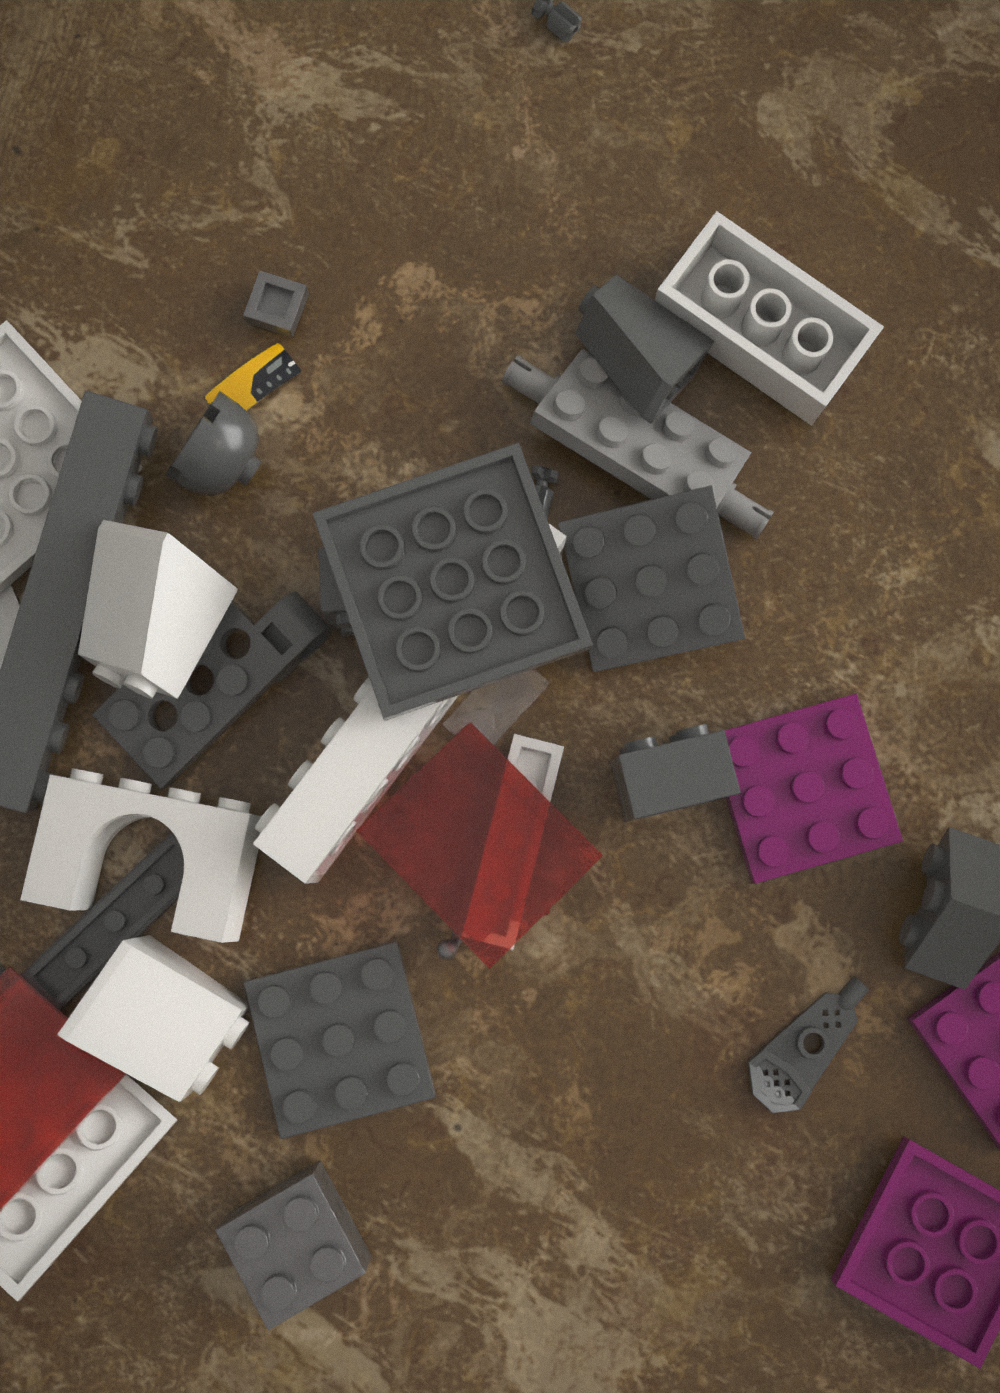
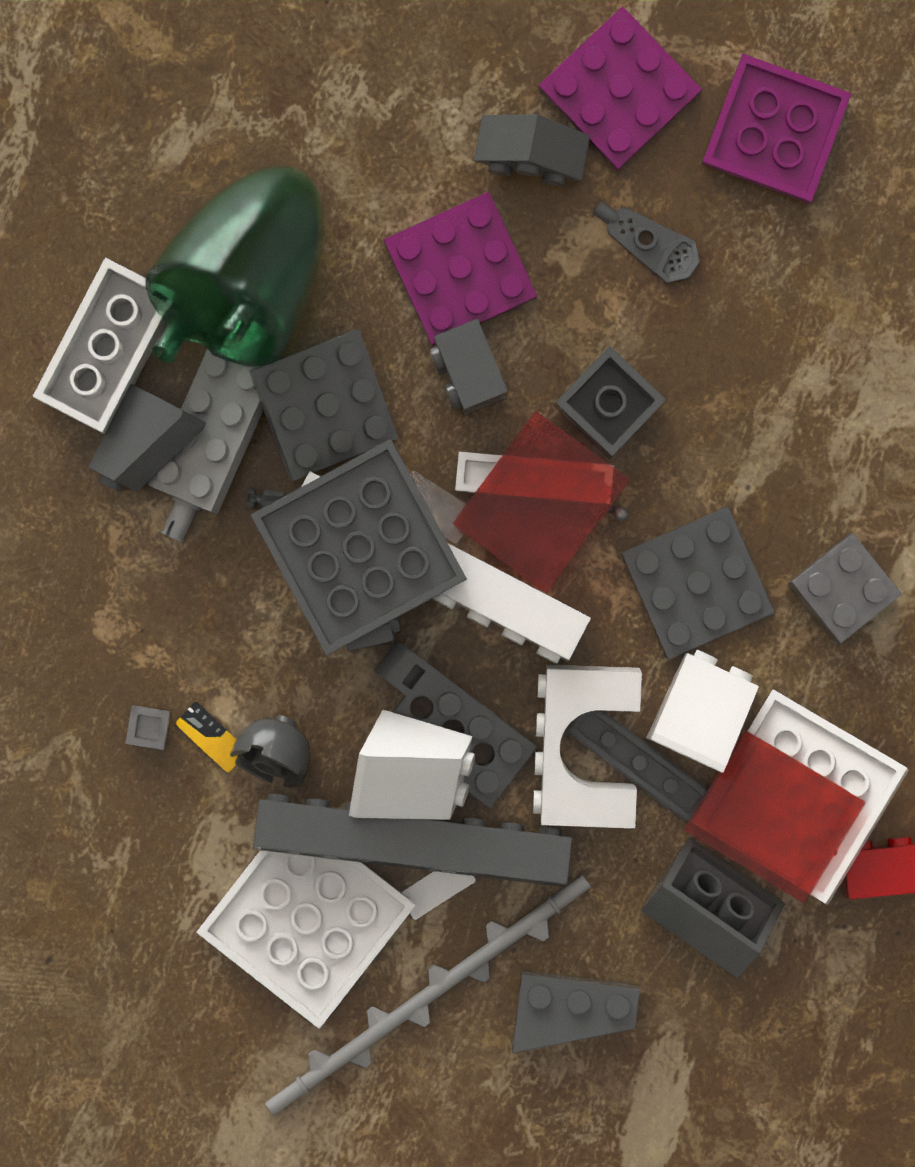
camera: 95 degrees left, 5 degrees up
(599, 958) = (609, 402): none -> dark grey brick
(853, 490) = (241, 269): none -> clear green windscreen

